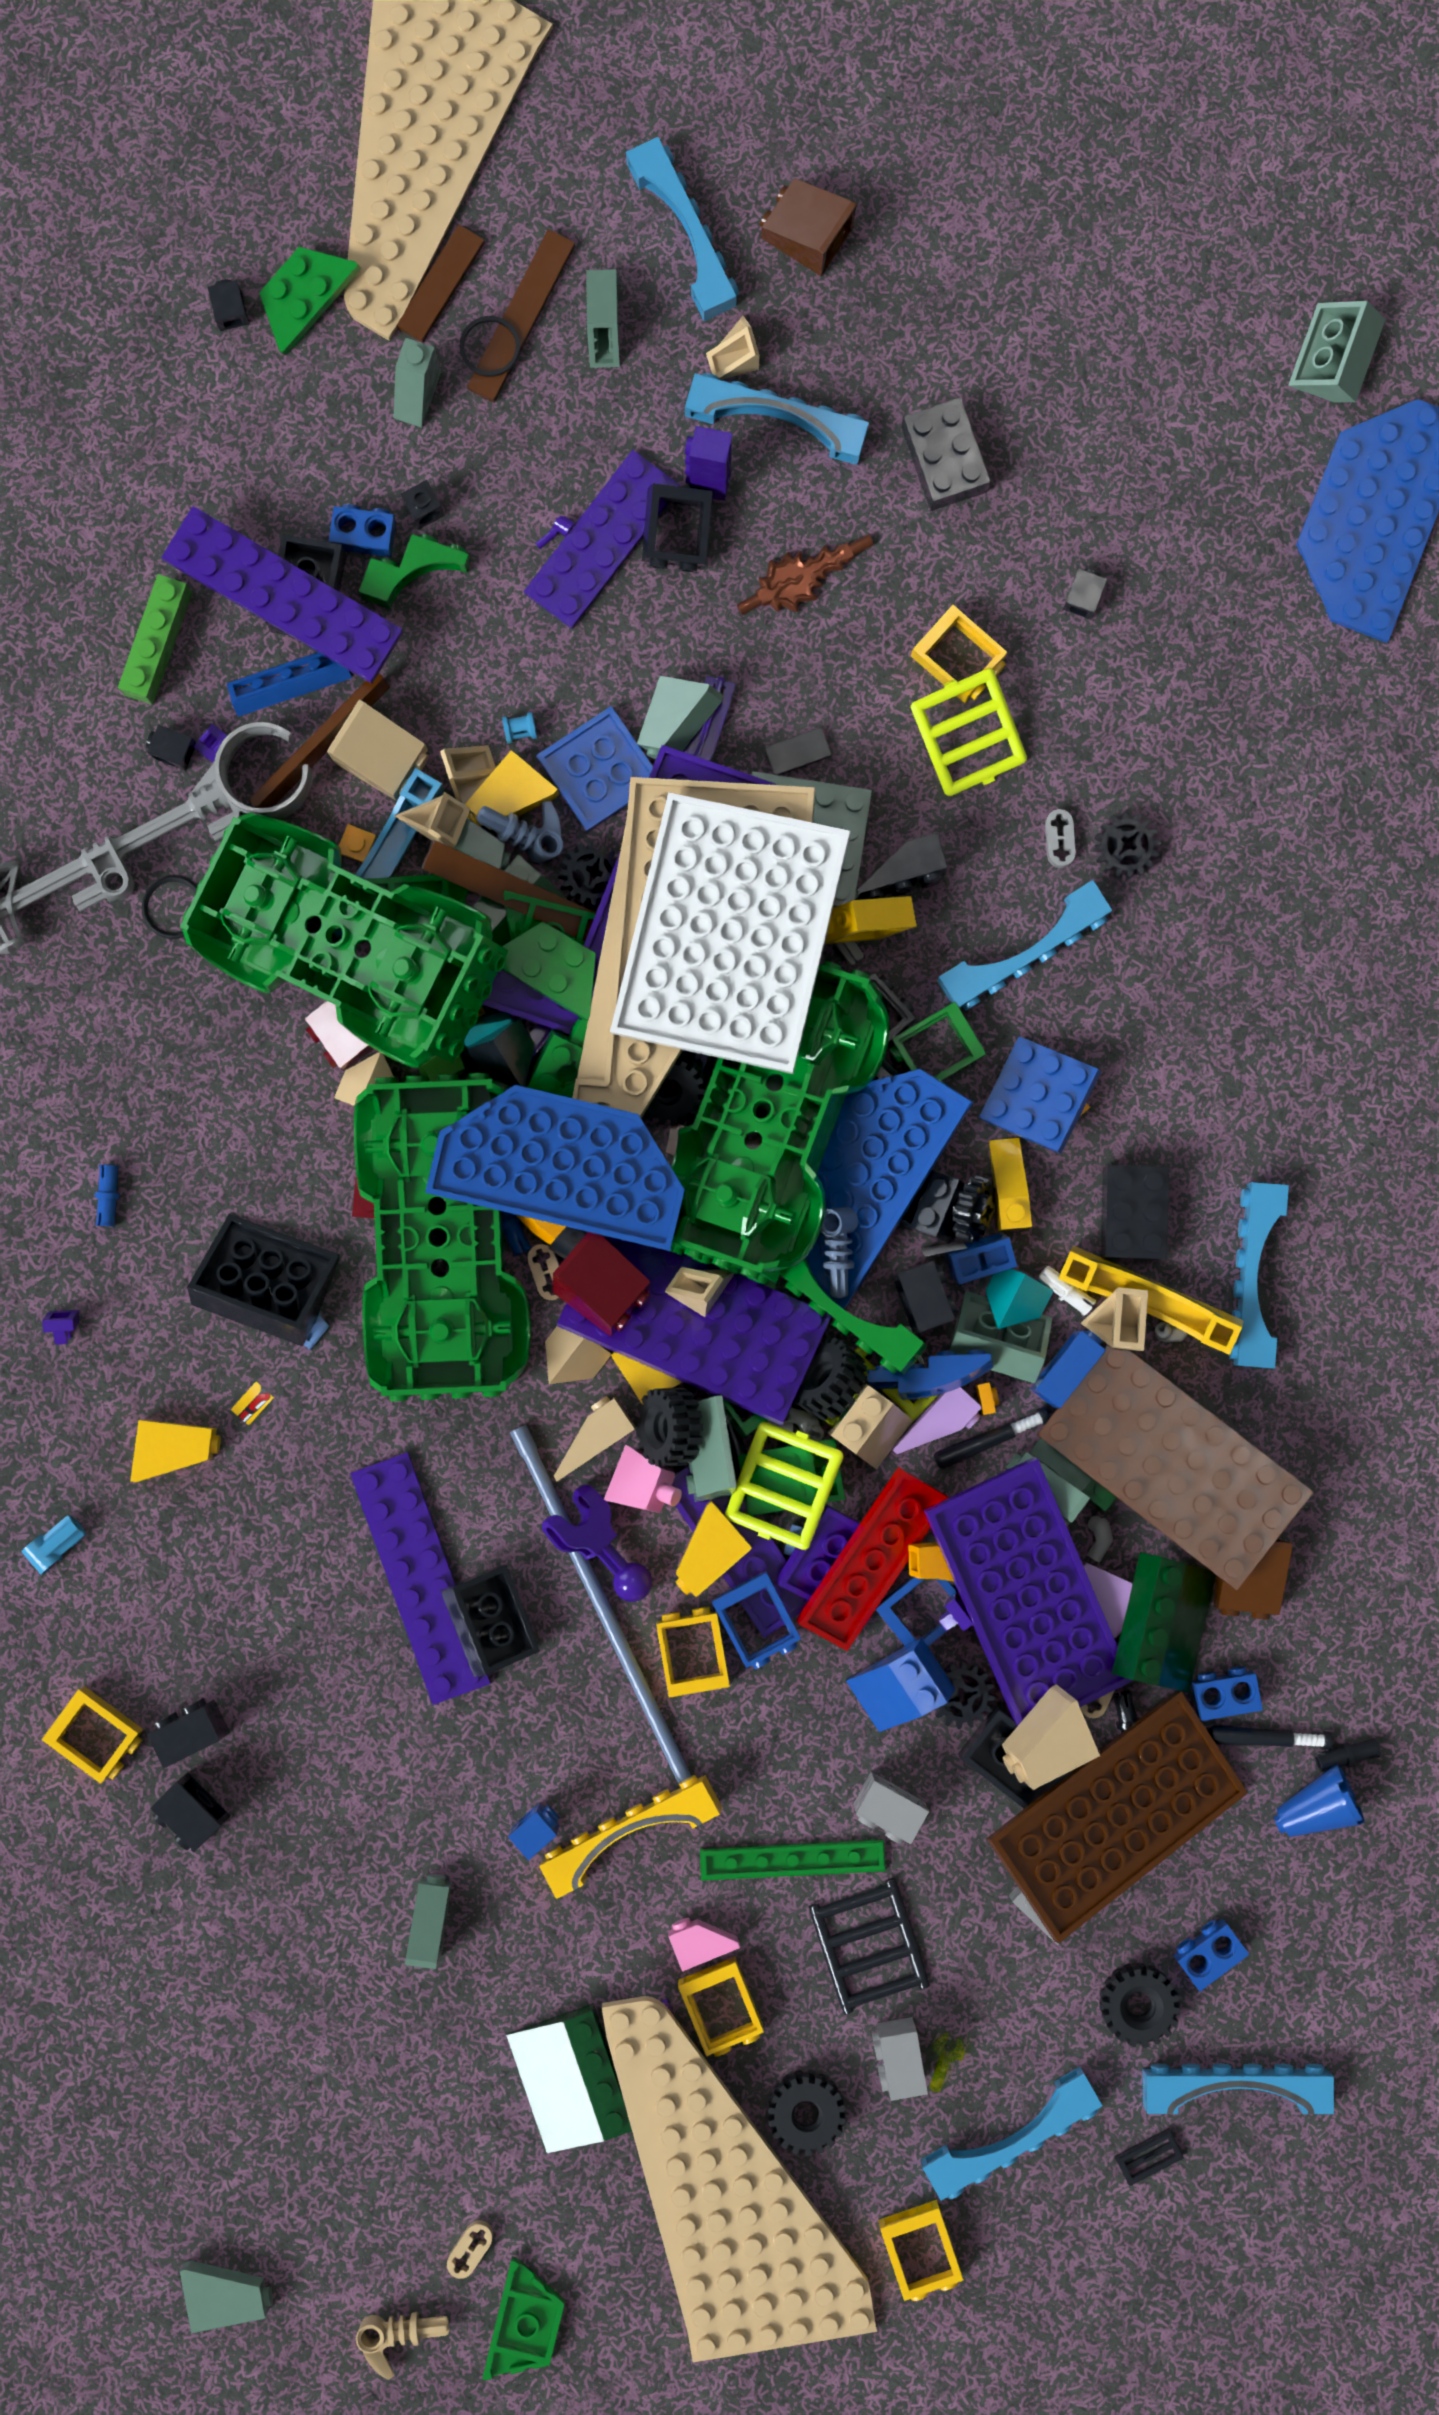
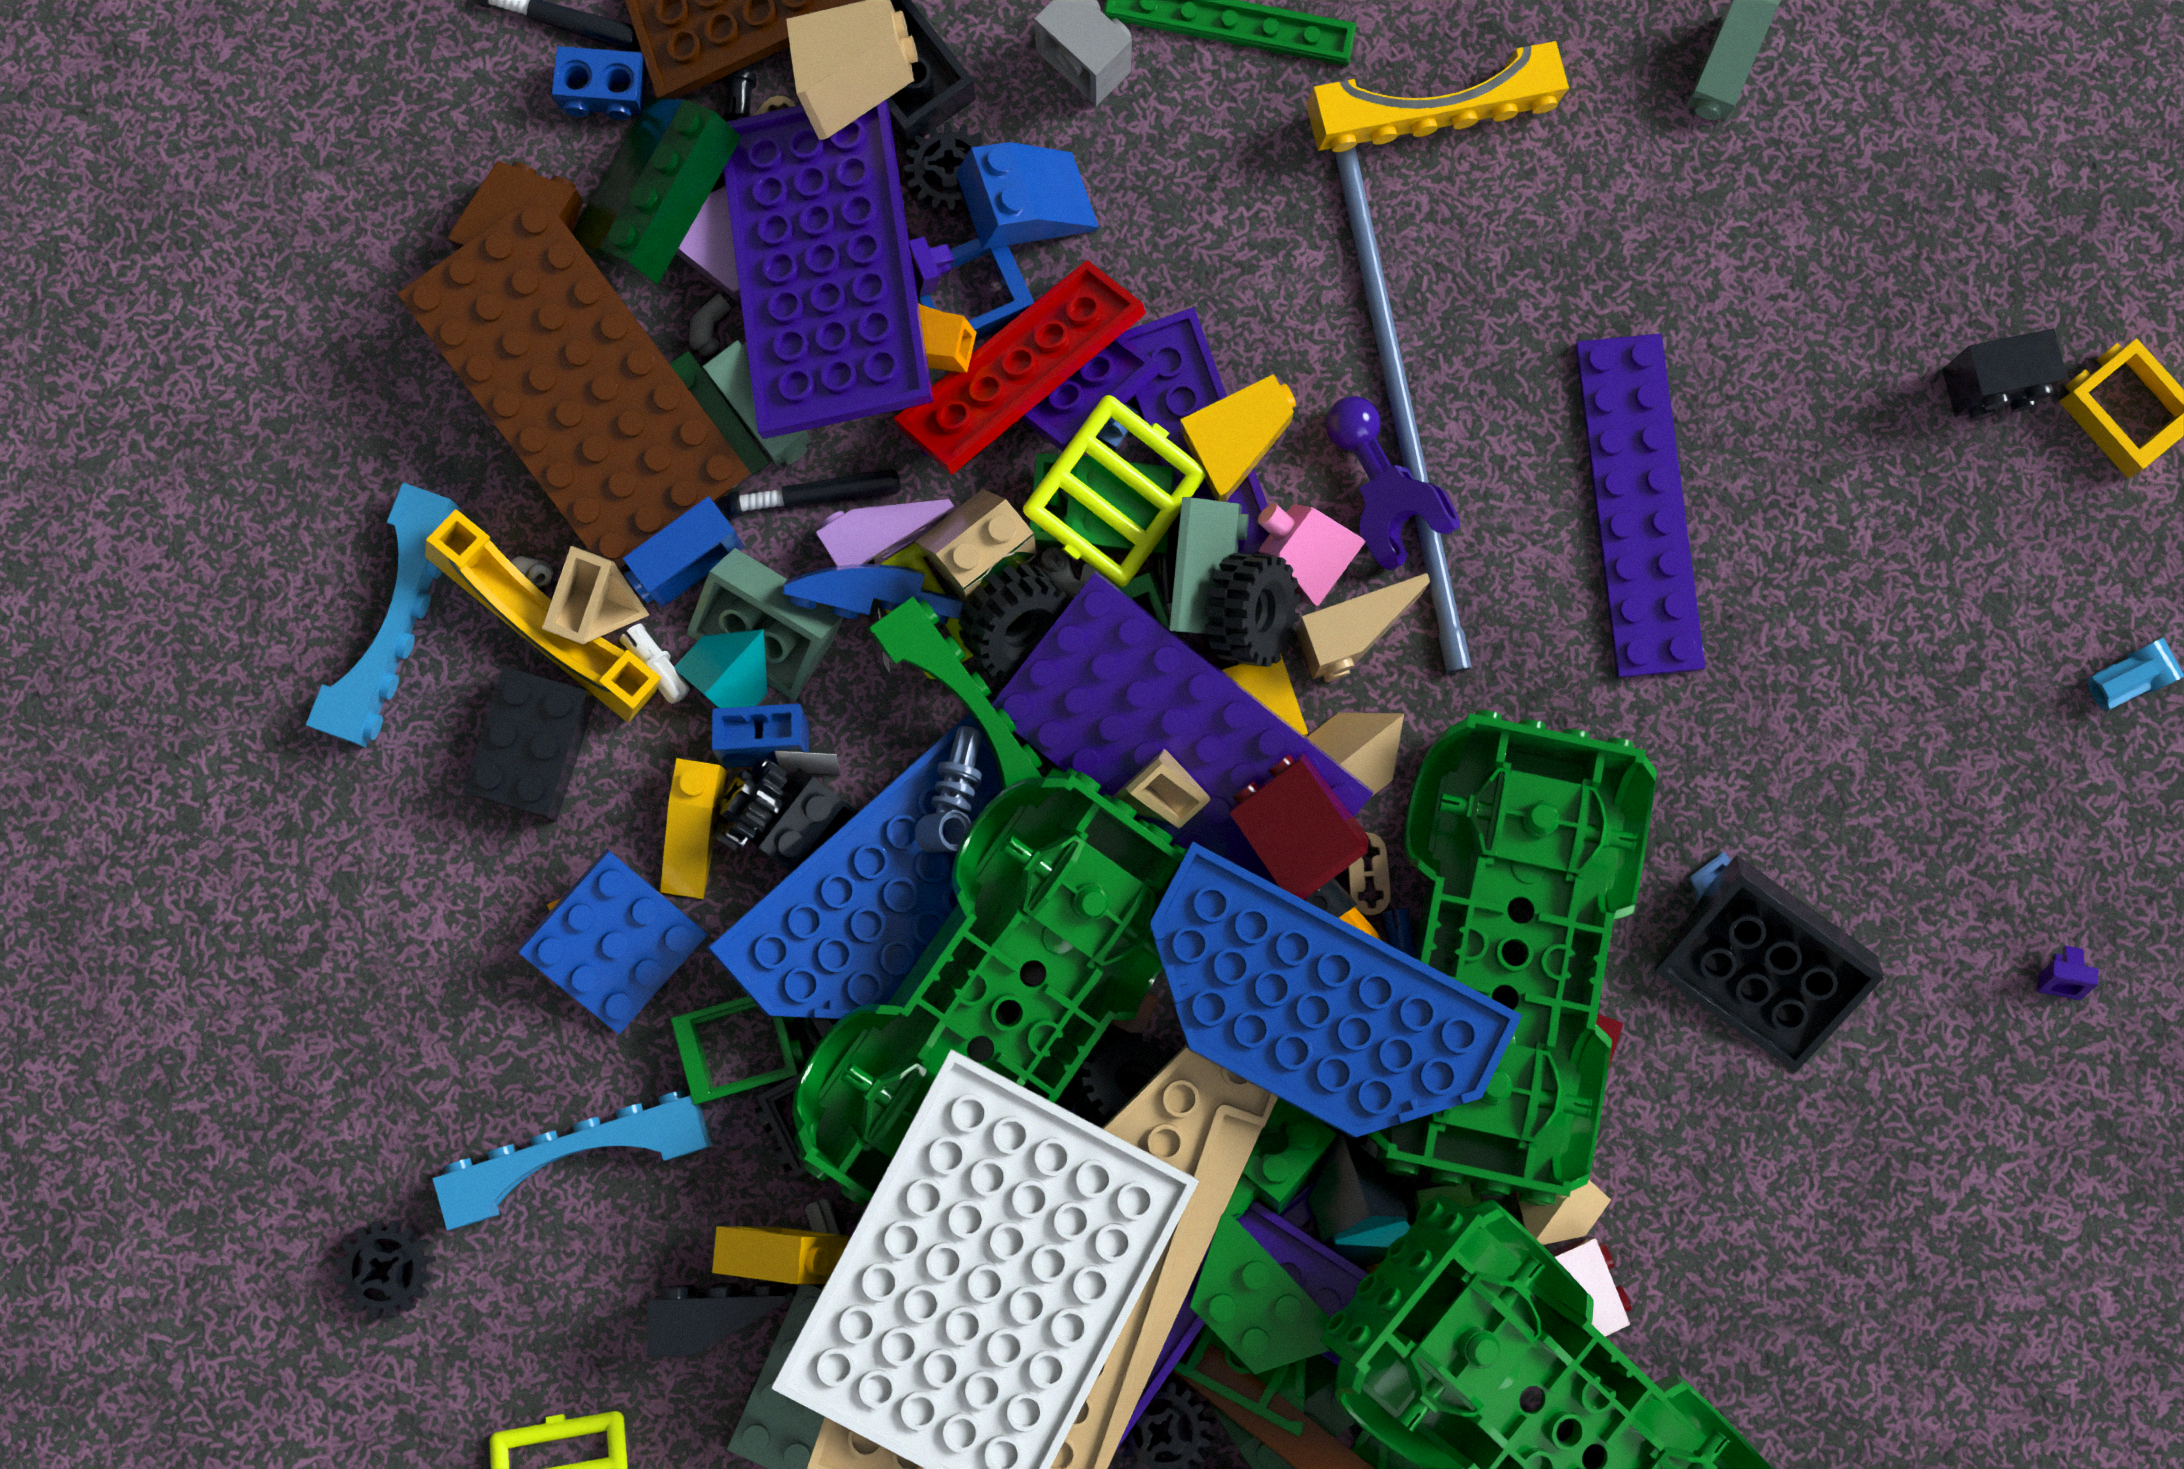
camera: 160 degrees left, 5 degrees down
(107, 1195) = (1965, 1142): blue pin -> none
(170, 1447) = (1947, 765): yellow slope -> none
(189, 1812) = (2023, 270): black brick -> none
(252, 1403) = (1819, 799): sticker -> none
(490, 1621) = (1560, 417): black brick -> none
(535, 1830) = (1564, 133): blue brick -> none
(699, 1683) = (1304, 271): yellow window -> none
(761, 1656) = (1206, 369): blue window -> none
(925, 1297) = (852, 696): black brick -> none
(987, 1398) = (805, 545): light orange plate -> none
(1067, 837) = (467, 1303): light grey beam -> none

